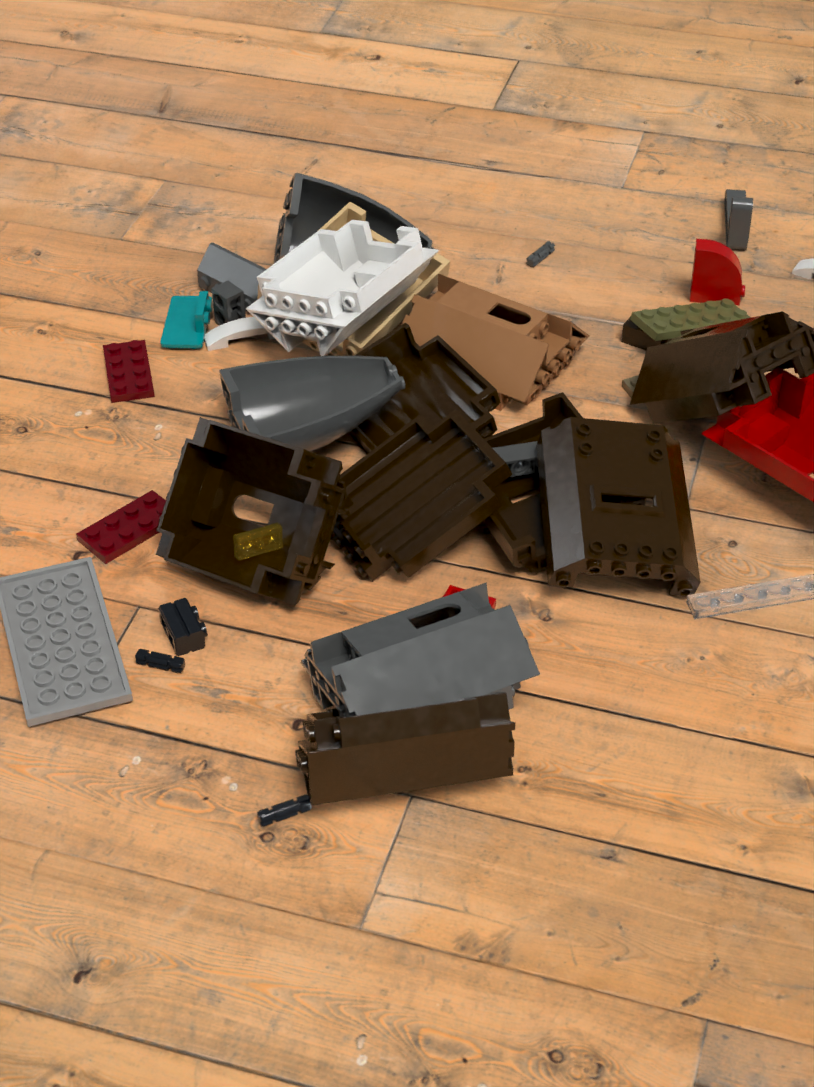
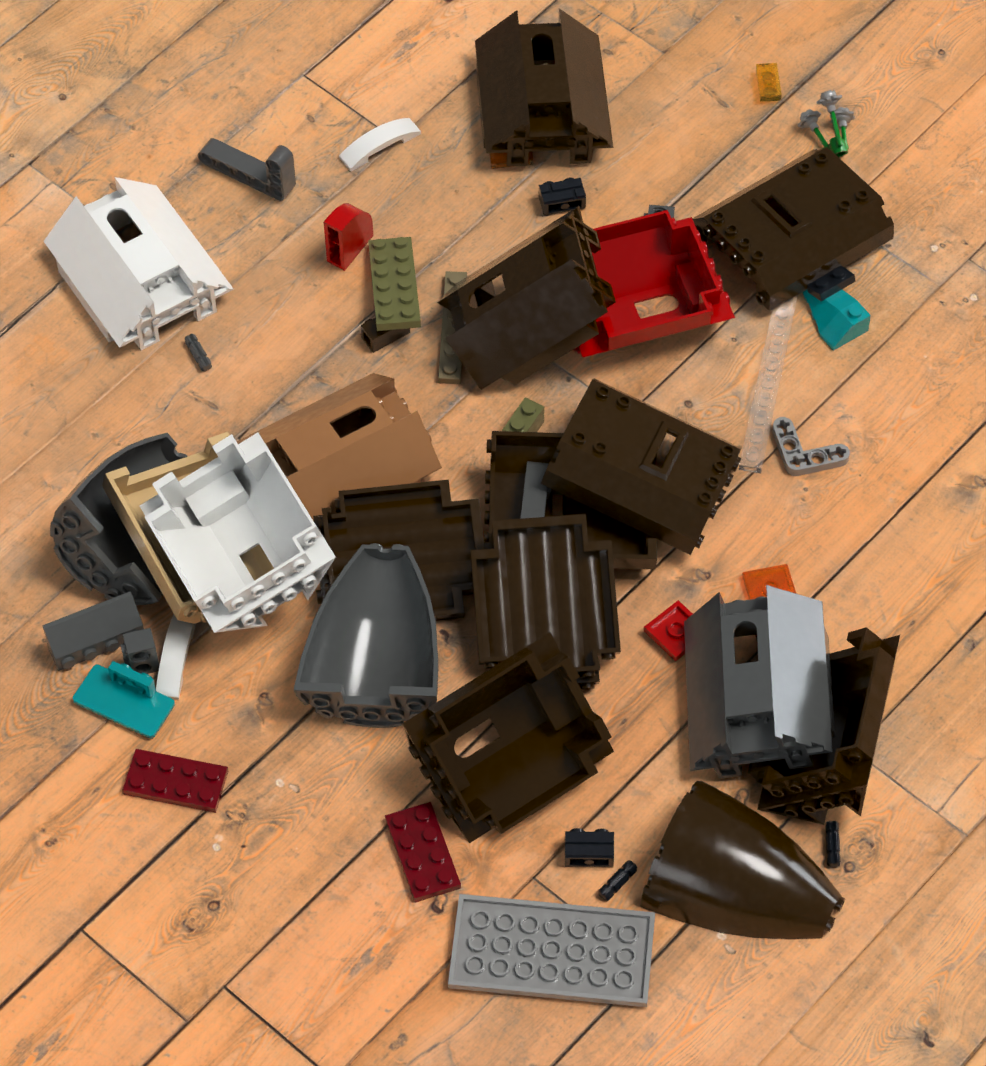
camera: 65 degrees left, 15 degrees up
(212, 733) = (737, 873): none -> dark brown panel
(258, 541) = (527, 741): clear yellow plate -> none
(563, 667) = (776, 576): none -> clear orange tile
(597, 191) = (136, 283): none -> white panel
(756, 662) = (798, 455): none -> light grey beam

